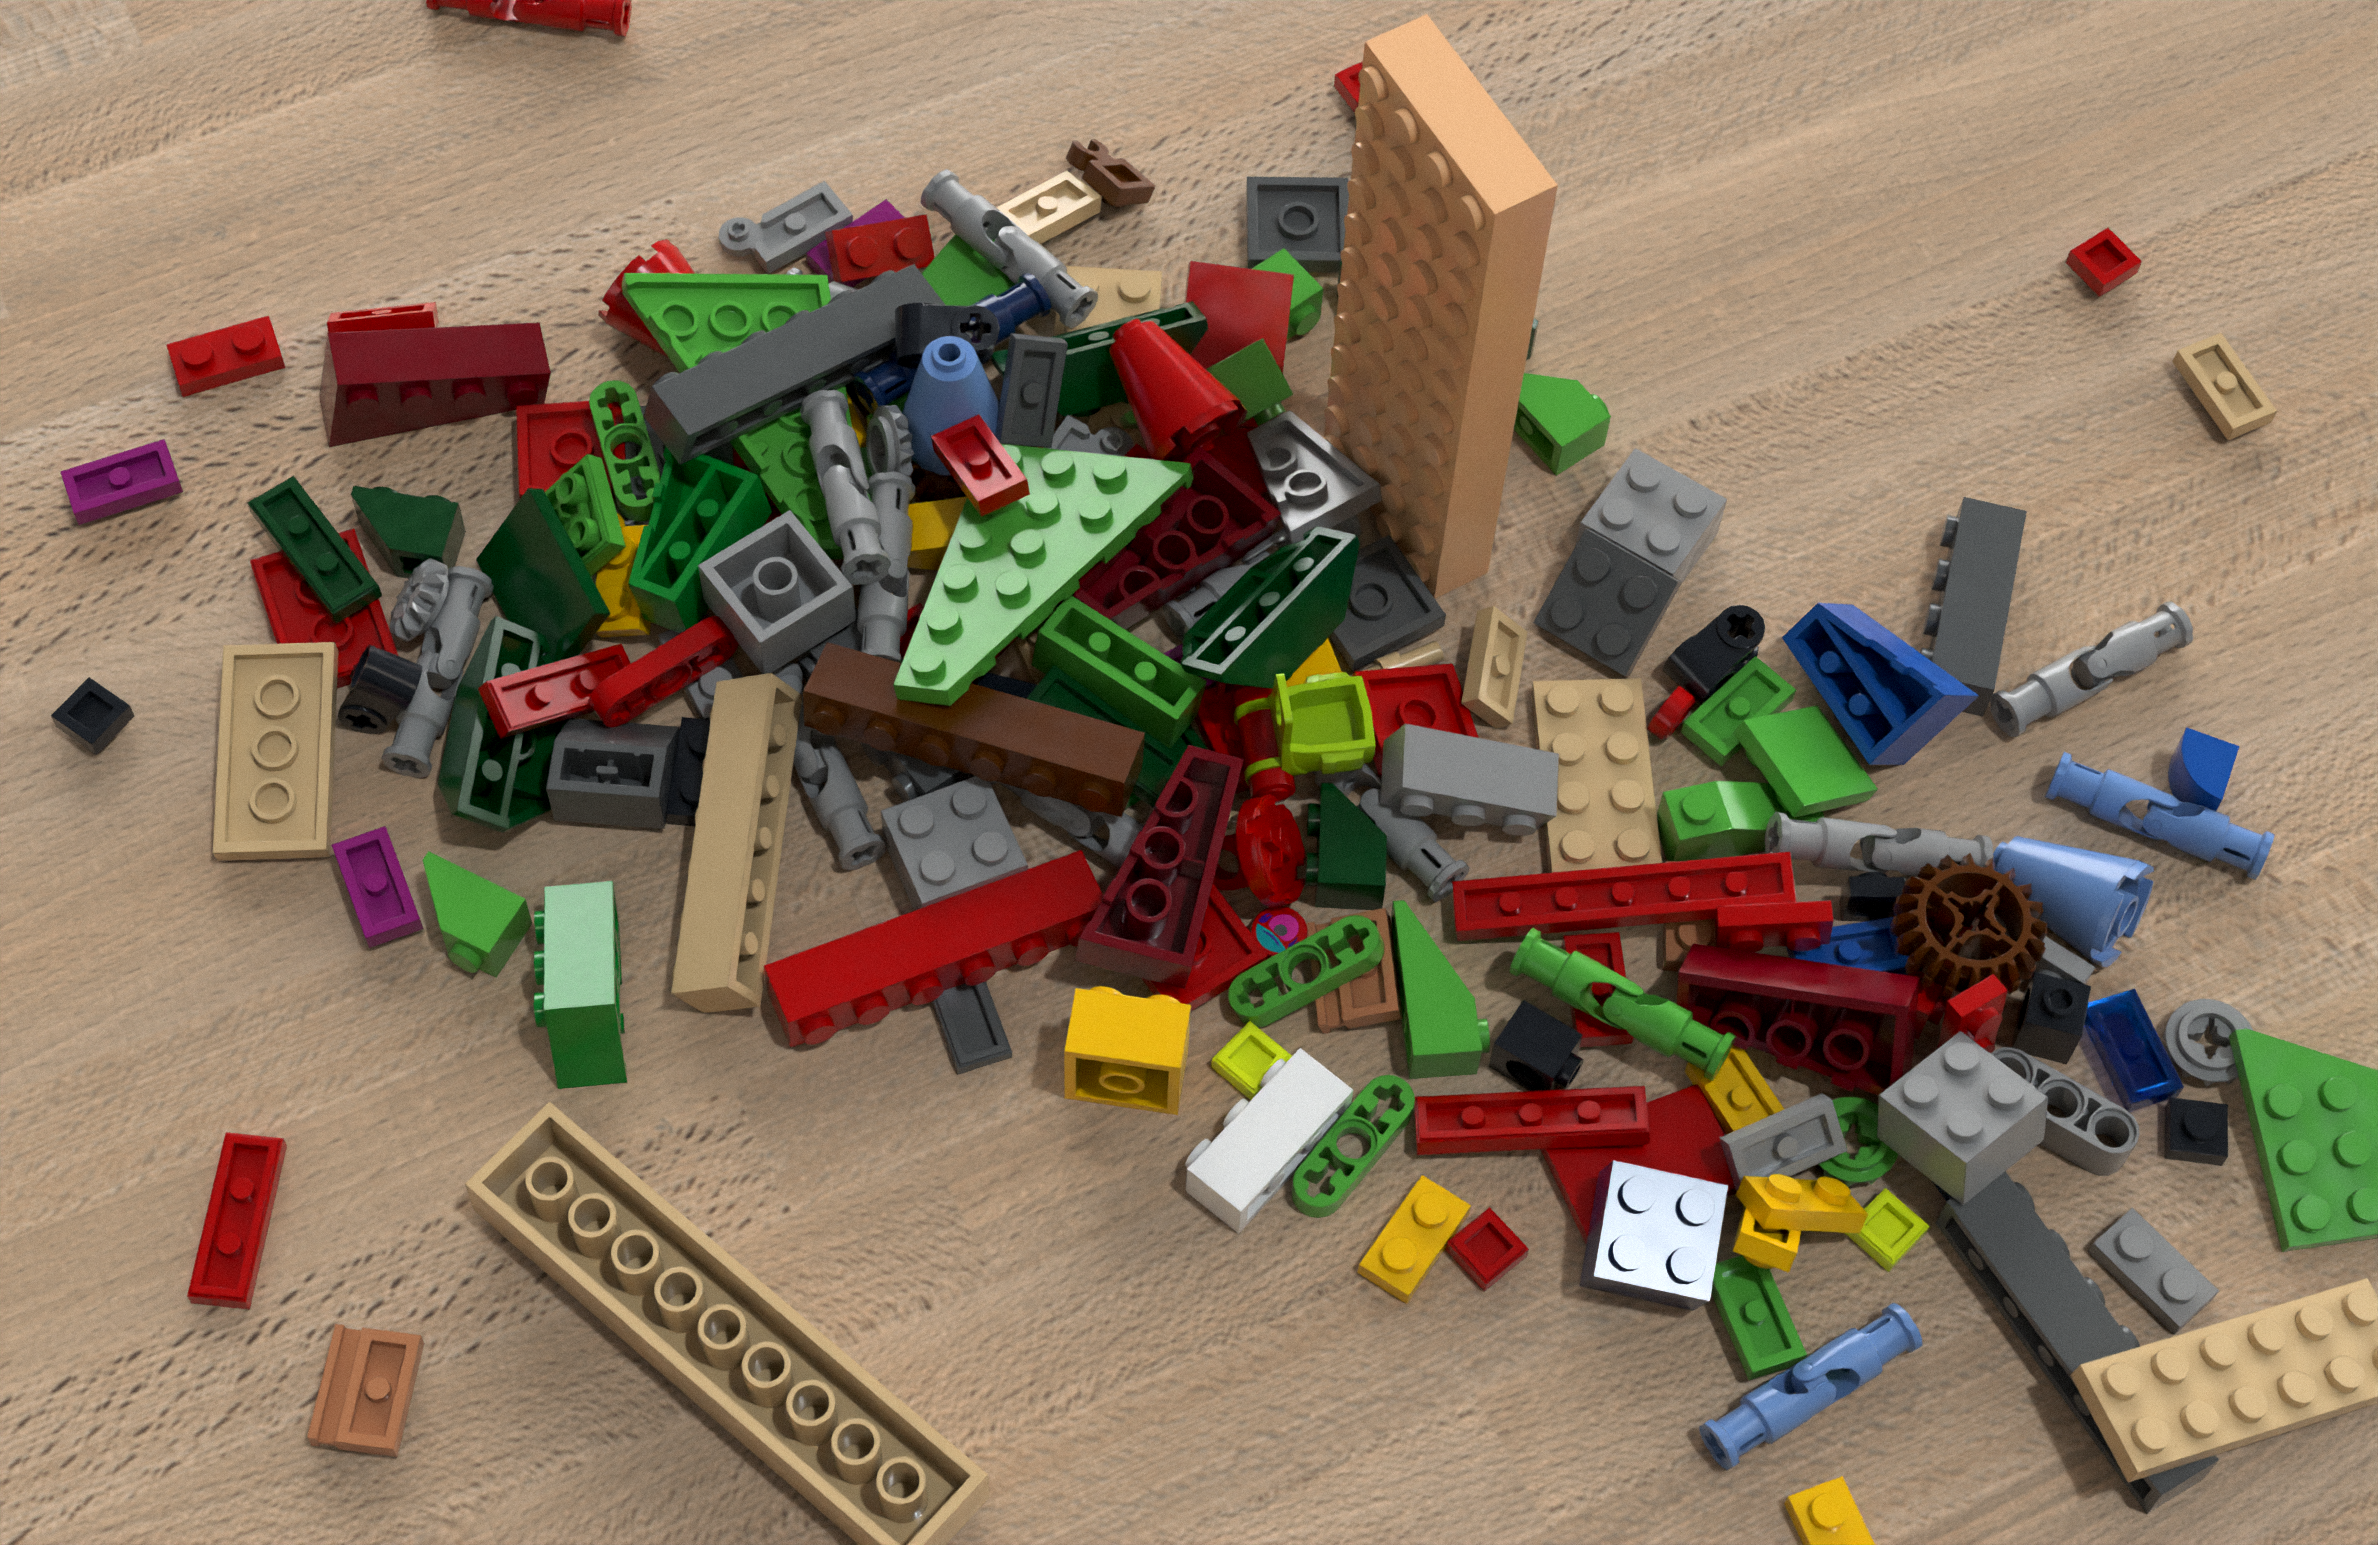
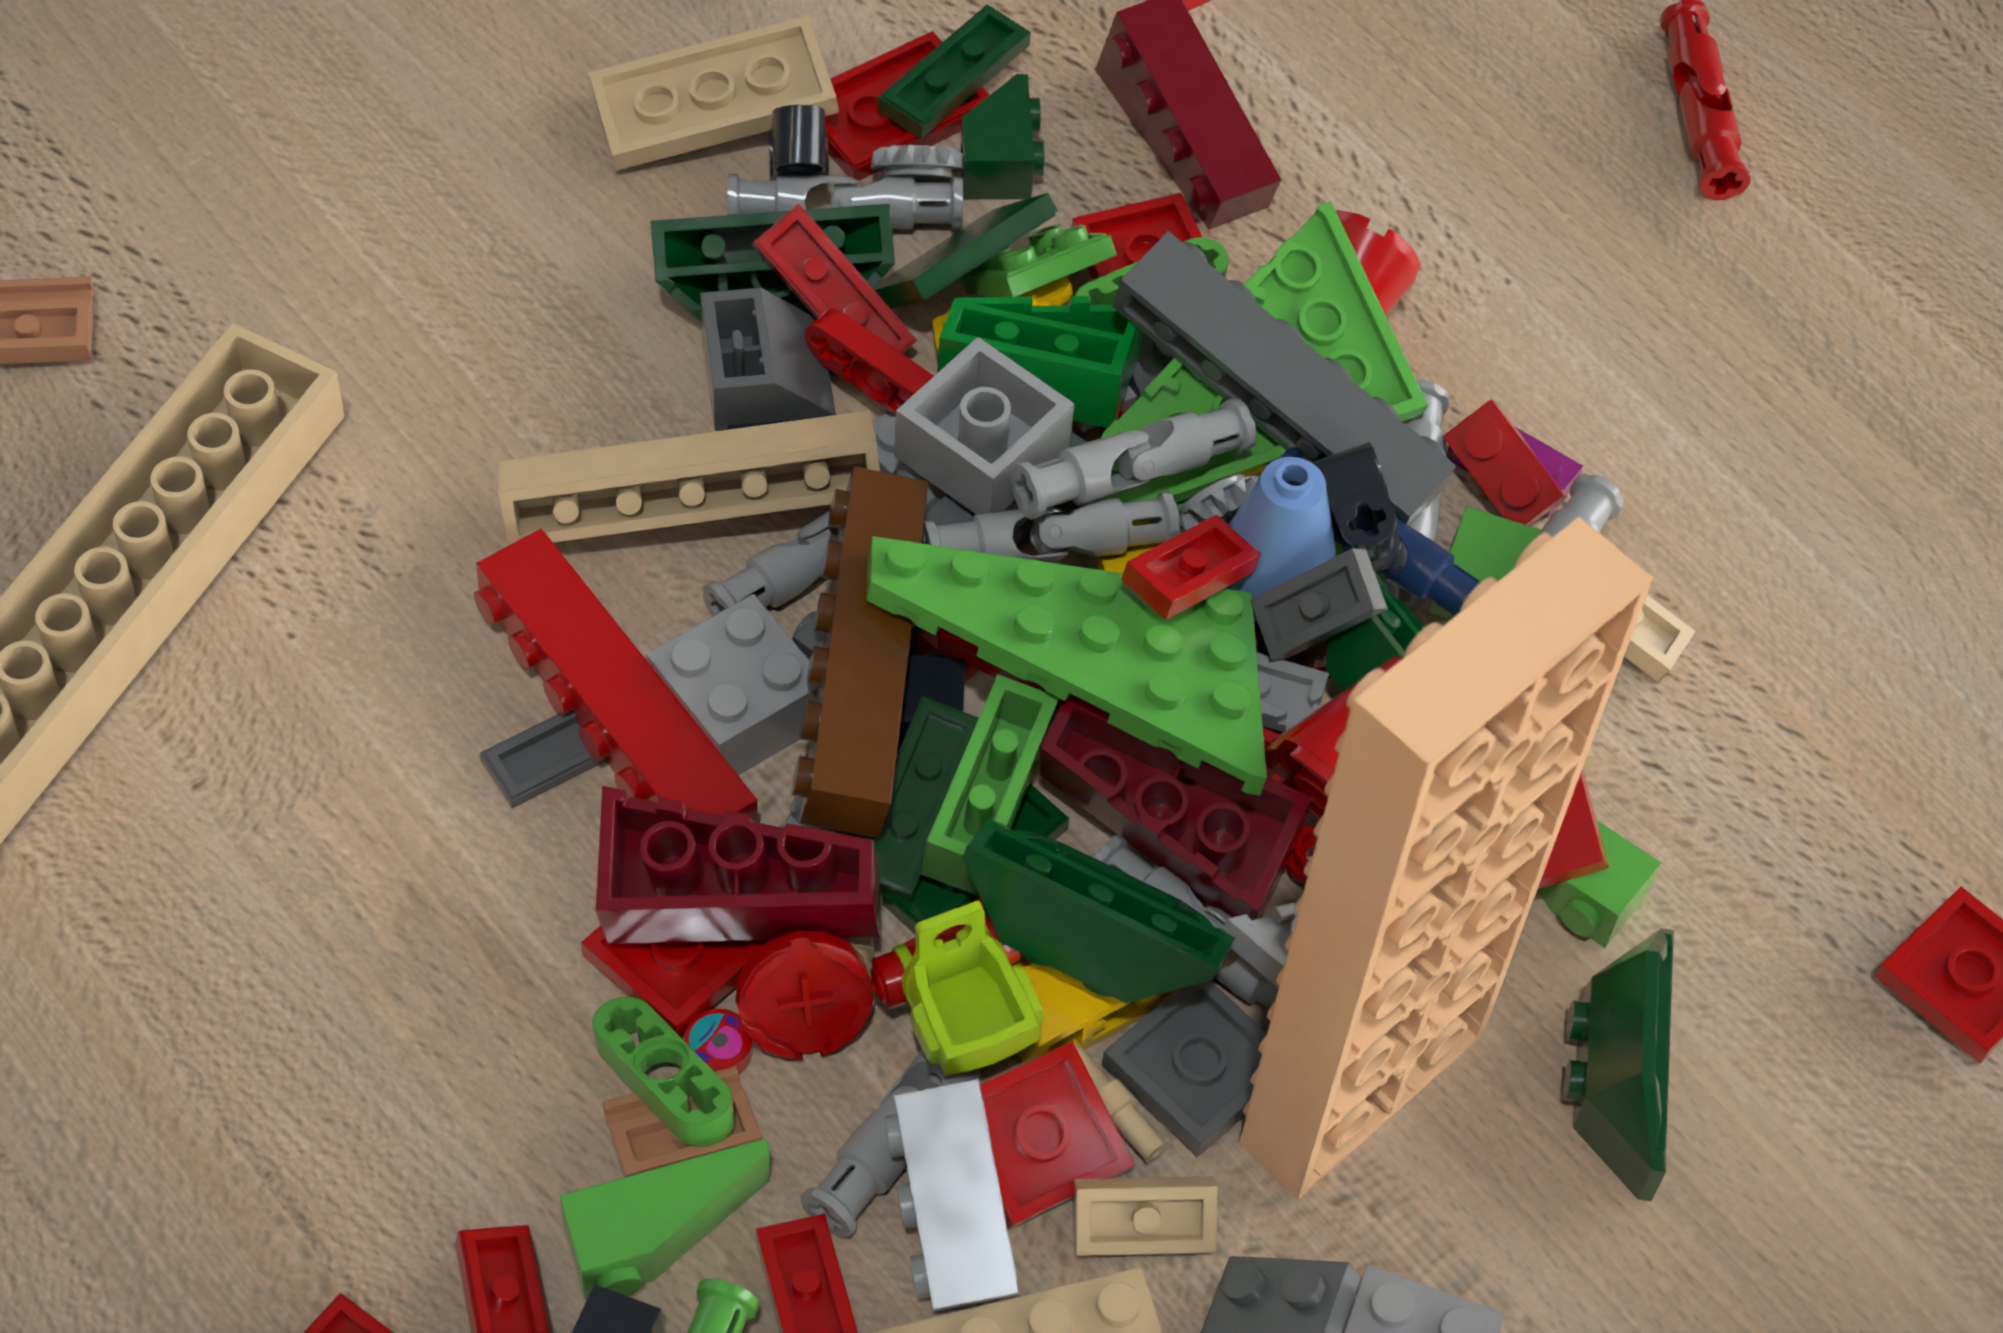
camera: 75 degrees right, 5 degrees down
(237, 1221) = (203, 189): red tile -> none
(377, 887) = (584, 209): magenta plate -> none
(385, 318) = (1244, 62): red plate -> none
(475, 916) = (564, 287): bright green slope -> none
(581, 983) = (503, 384): wedge -> none
(787, 229) = (1522, 392): light grey hinge -> none
(1112, 178) = (1703, 678): reddish brown plate -> none
(1126, 1050) = (510, 891): yellow brick -> none
(1248, 1059) = (547, 1045): neon yellow tile -> none
(1266, 1139) = (437, 1071): white brick -> none
(1299, 216) = (1724, 890): dark grey plate -> none
(1341, 1186) = (400, 1168): bright green beam -> none
(1349, 854) = (834, 1087): dark green slope -> none
(1414, 1239) = (344, 1257): yellow plate -> none
(1560, 420) = (1540, 1230): bright green slope -> none

